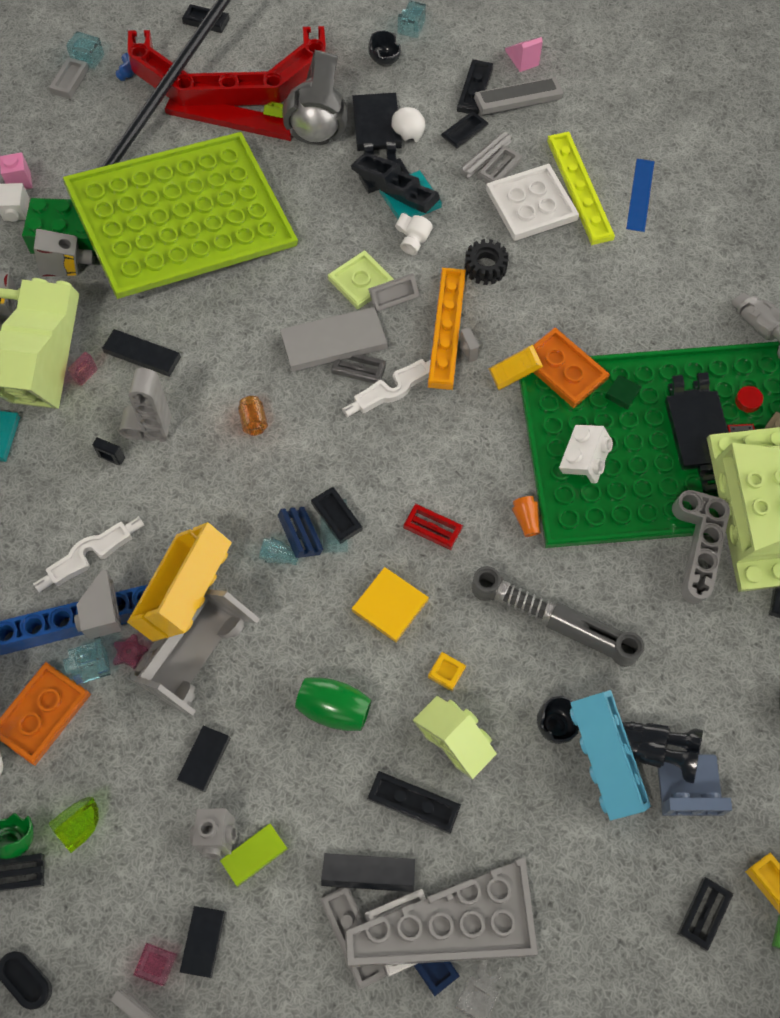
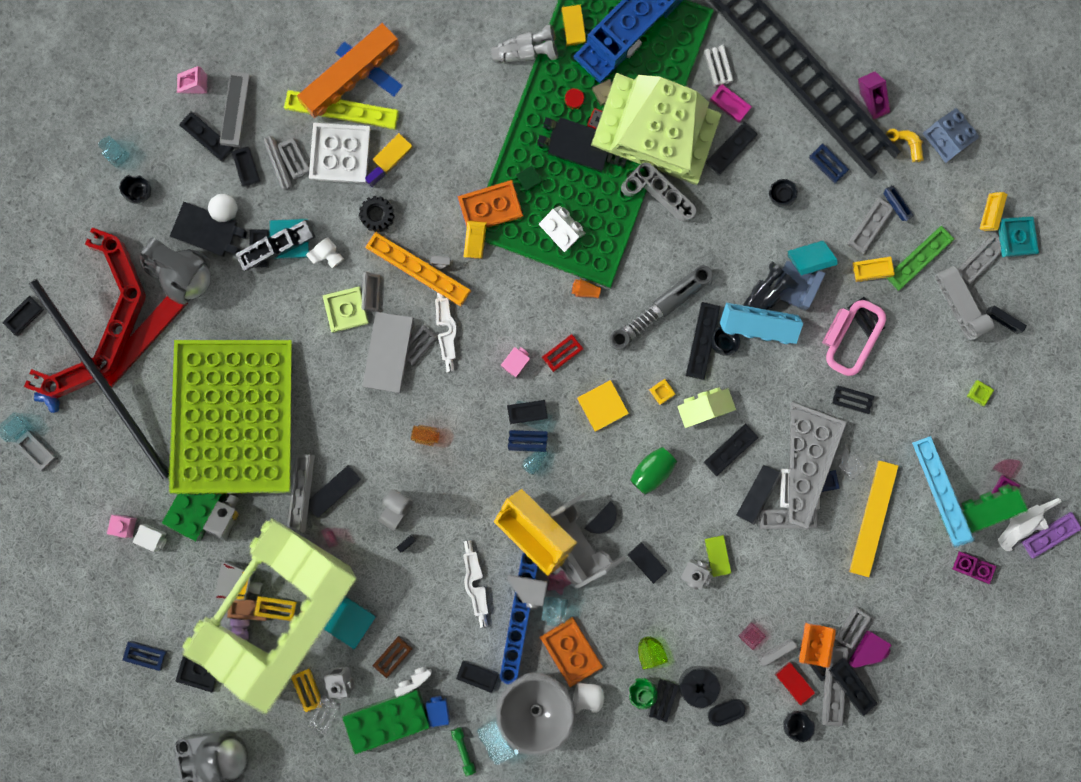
camera: 65 degrees left, 20 degrees up
(29, 910) = (699, 698): none -> black brick
(124, 319) = (301, 492): none -> light grey tile
(202, 942) = (752, 604): black tile -> none
(238, 674) = (603, 520): none -> black tile
(273, 109) = (156, 300): lime tile -> none
(393, 475) = (516, 361): none -> bright pink brick
(526, 242) = (375, 176): none -> dark purple tile
(532, 694) = (701, 342): none -> black tile
(563, 251) = (392, 153): none -> yellow tile
(583, 981) = (868, 404): none -> black tile
(626, 169) = (348, 71): none -> orange brick
(667, 877) = (839, 328): none -> bright pink bar
(741, 786) = (812, 257): none -> teal tile

